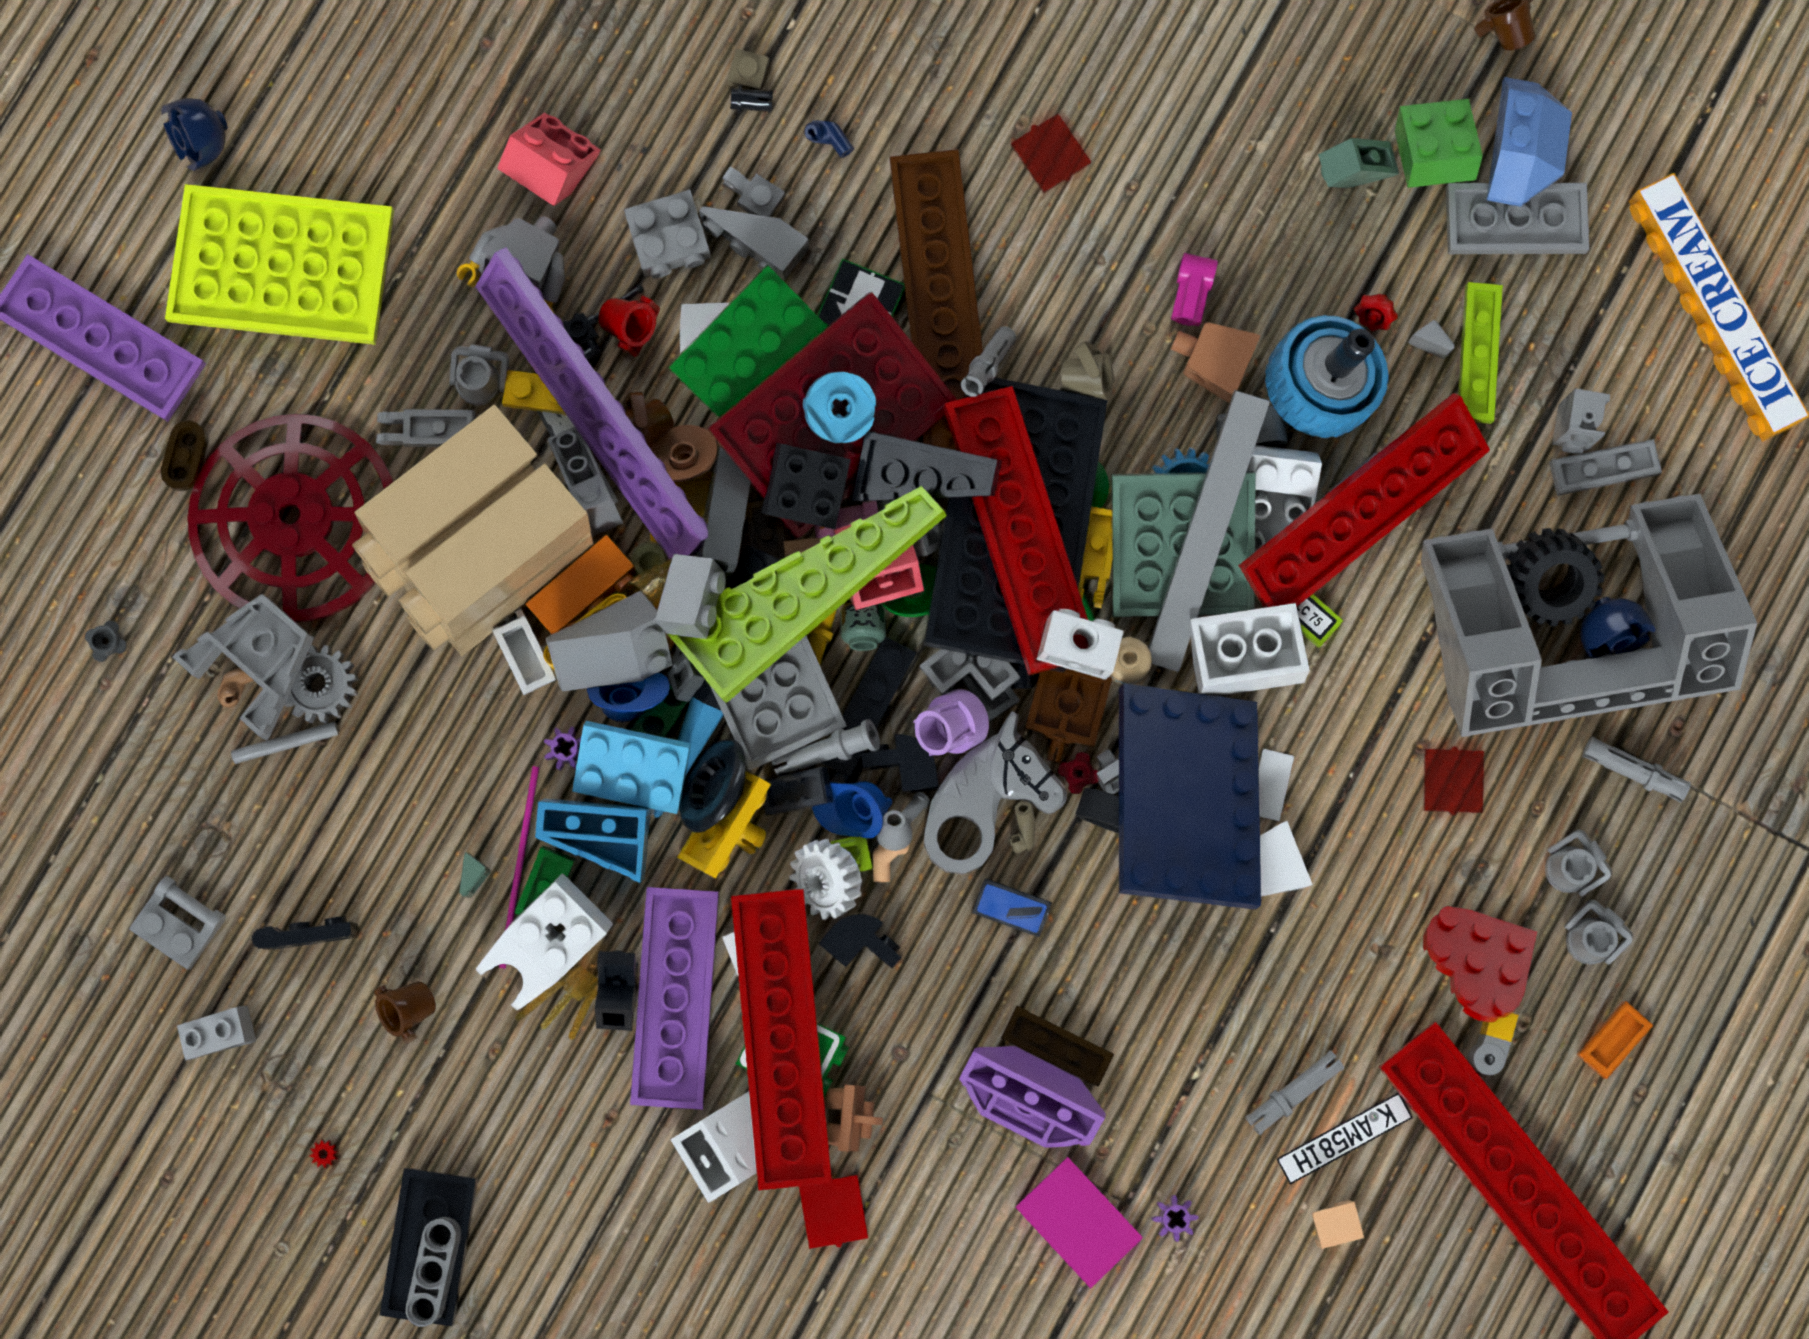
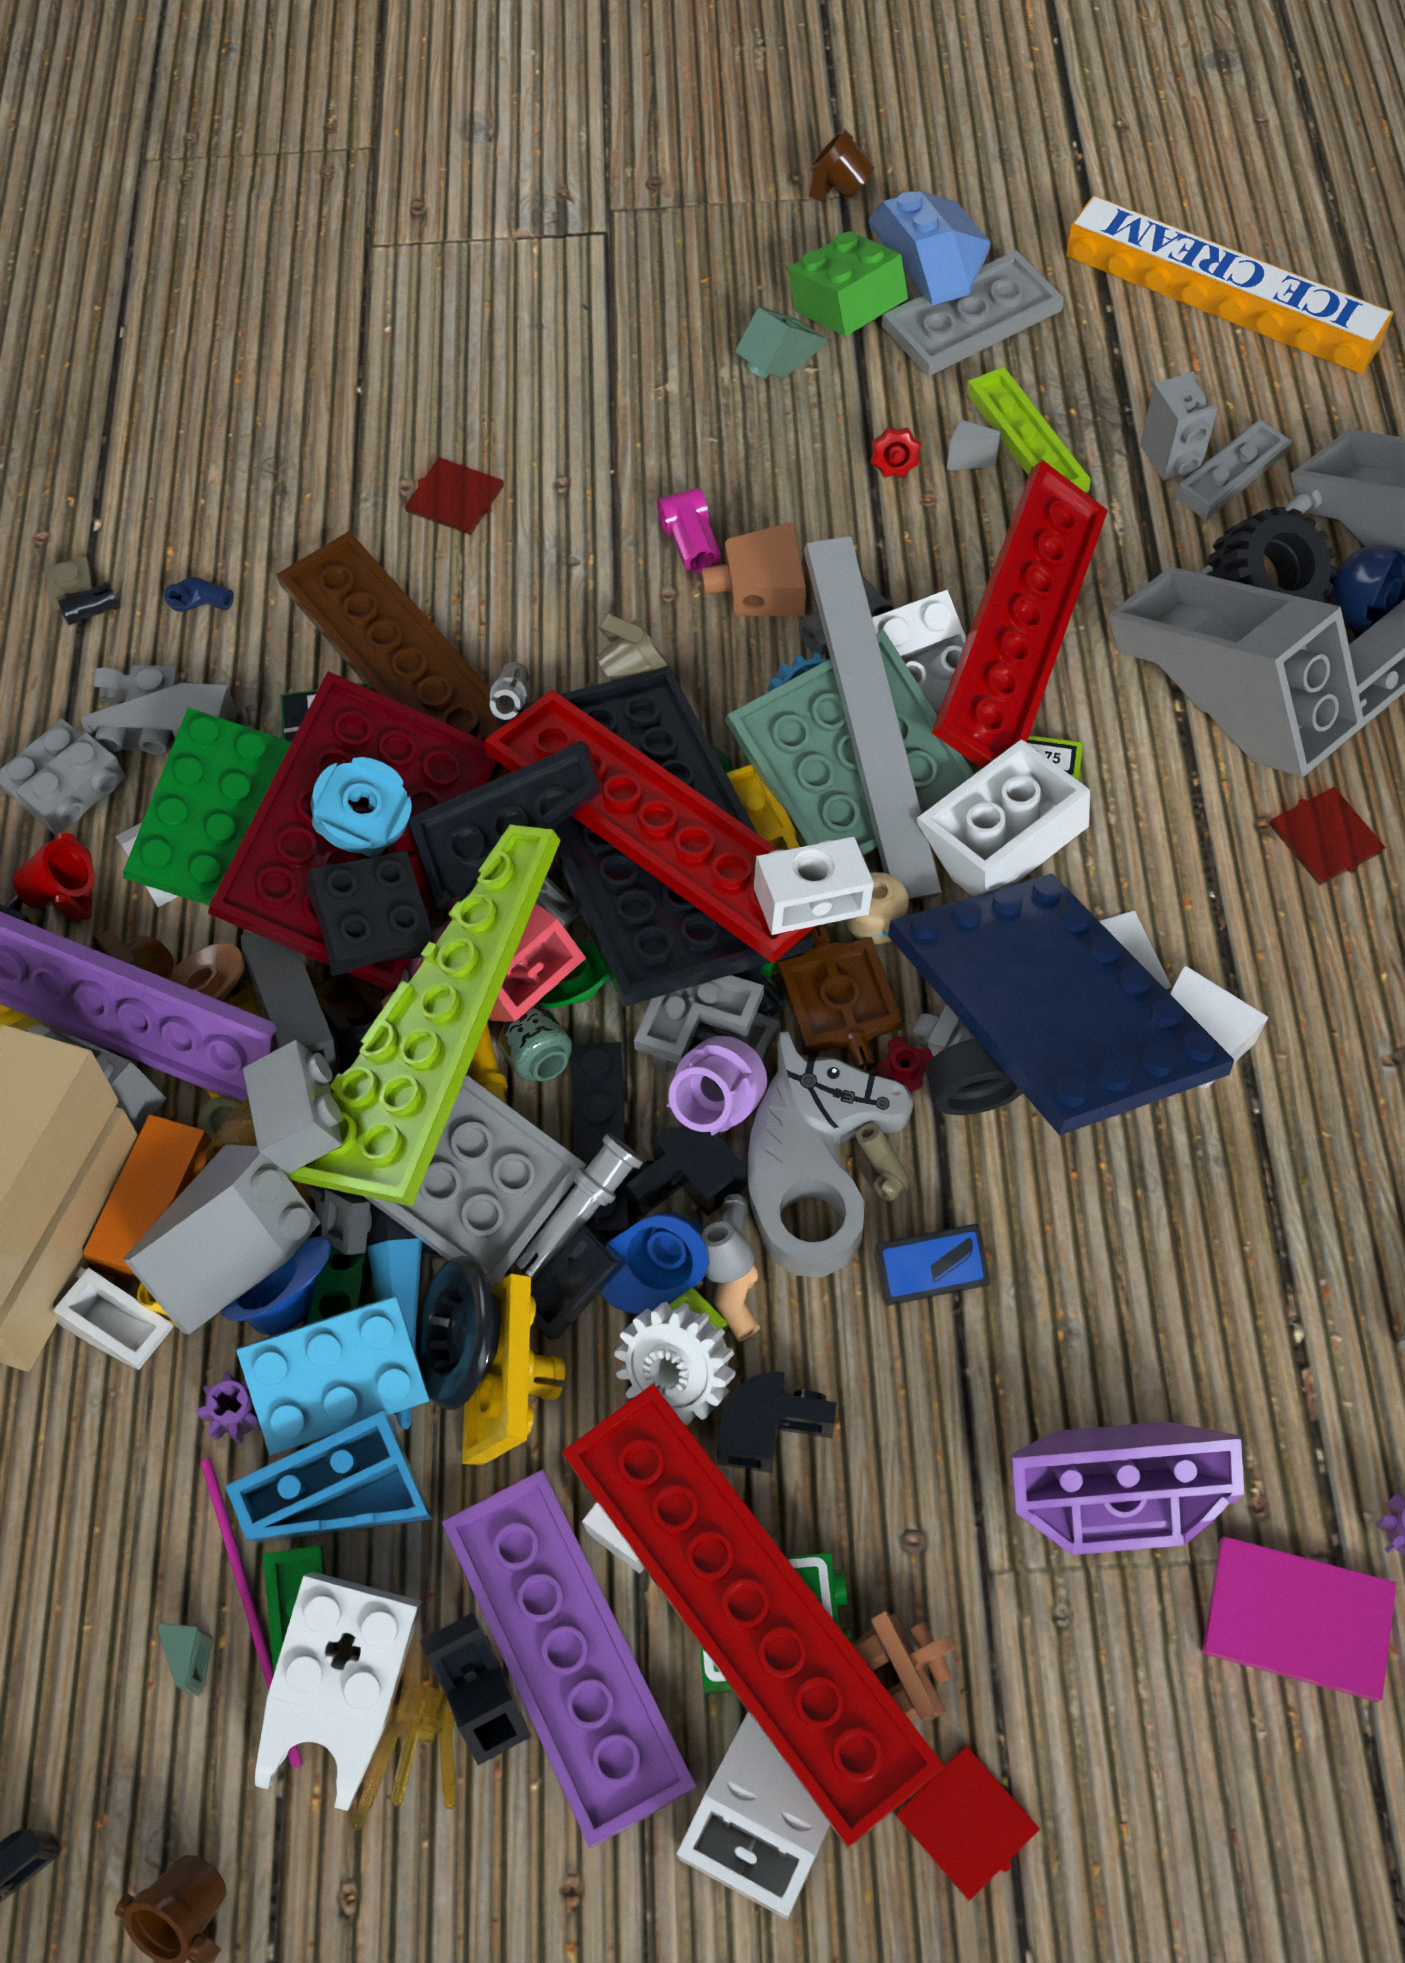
camera: 25 degrees left, 20 degrees down
(1057, 1046) = (1107, 1399): dark brown plate -> none
(1326, 376) = (896, 510): dark azure wheel -> none

